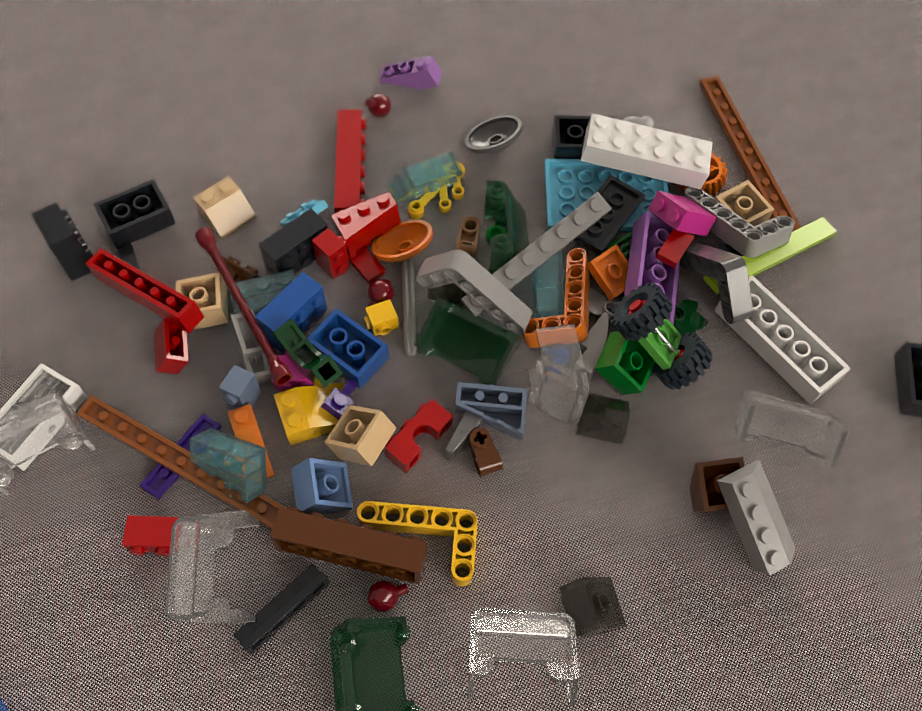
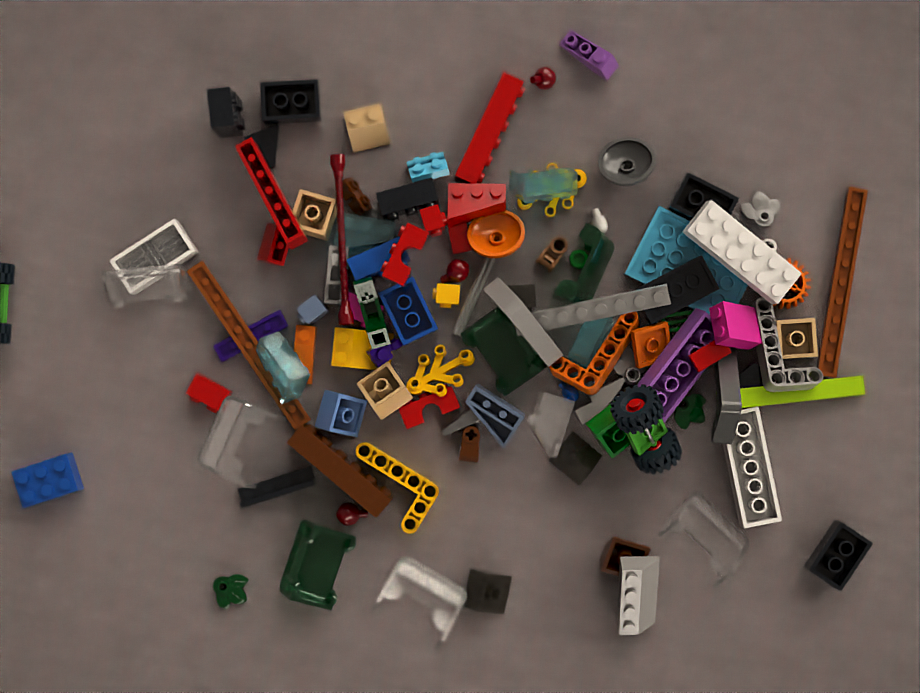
camera: 30 degrees right, 25 degrees up
(315, 297) = (410, 238): none -> red arch
(397, 414) = (438, 373): none -> yellow plant

